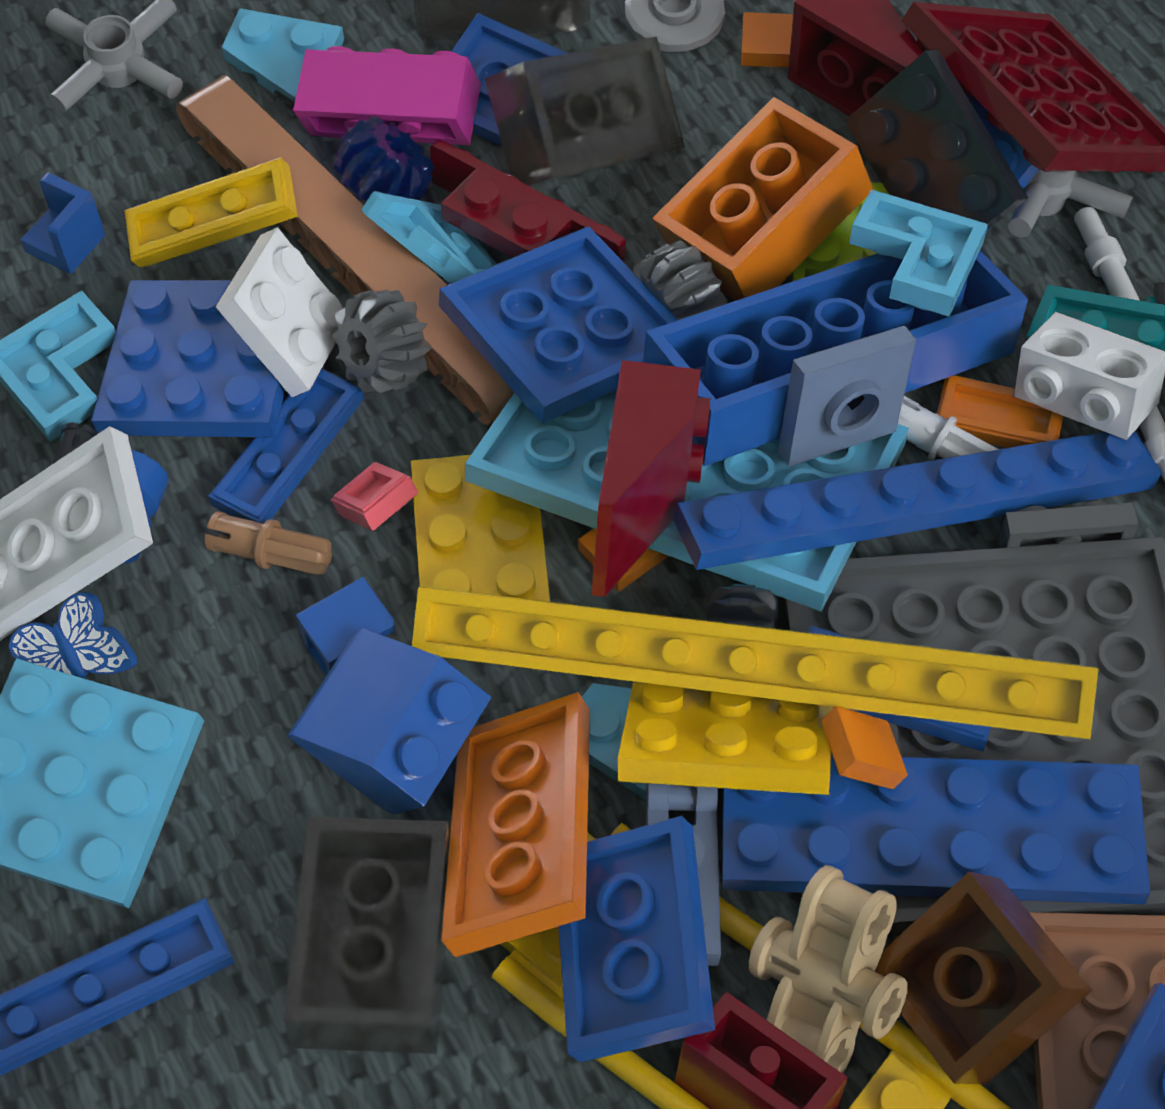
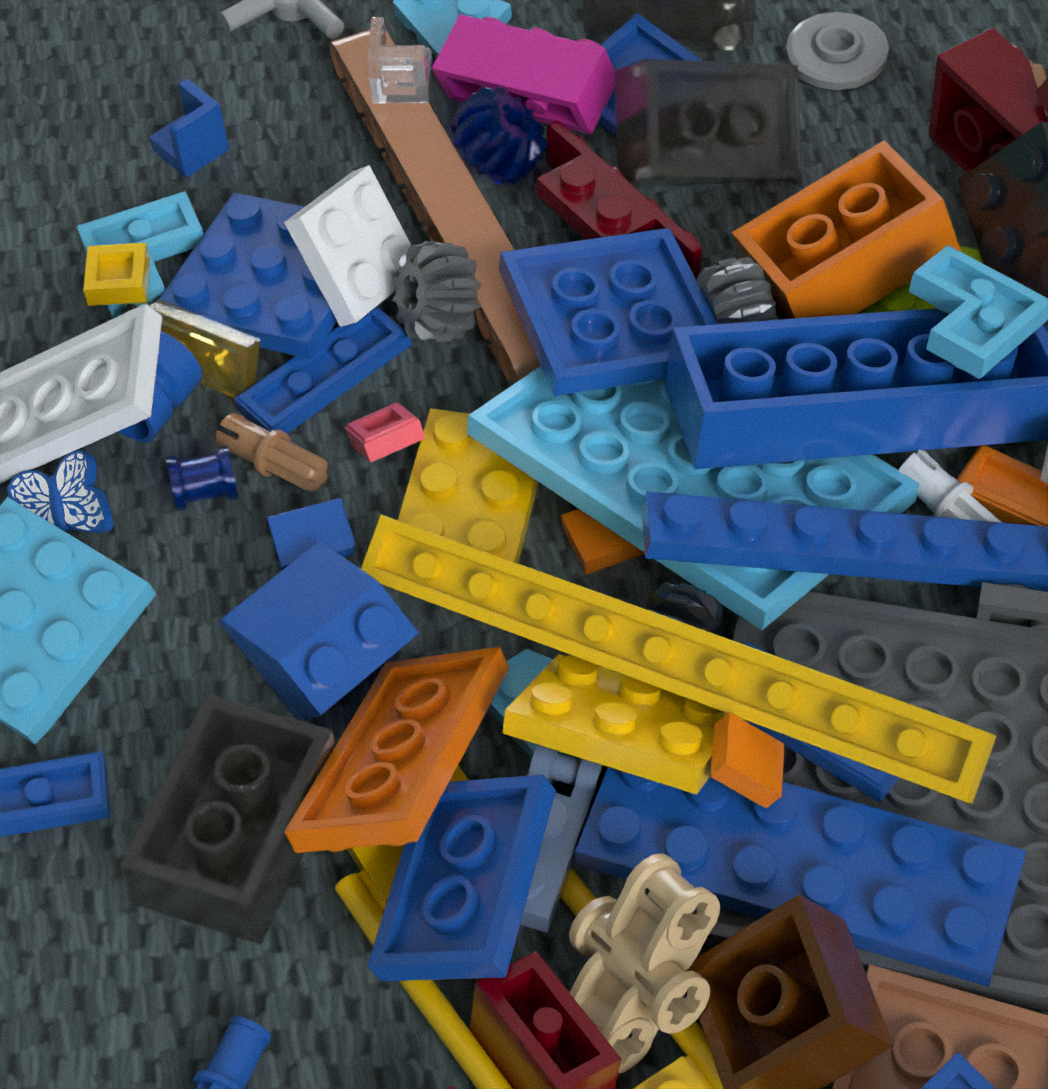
camera: 20 degrees right, 5 degrees down
(46, 395) = (116, 274): none -> yellow plate
(183, 451) = (224, 354): none -> clear yellow plate
(207, 587) = (202, 478): none -> clear blue bush
(210, 213) = (325, 146): yellow tile -> none
(264, 121) = (398, 71): none -> clear panel
(424, 233) = (514, 203): medium azure wing -> none
(646, 463) = (619, 447): dark red slope -> none
(766, 39) = (912, 94): orange tile -> none
(826, 381) = (832, 408): sand blue piece -> none

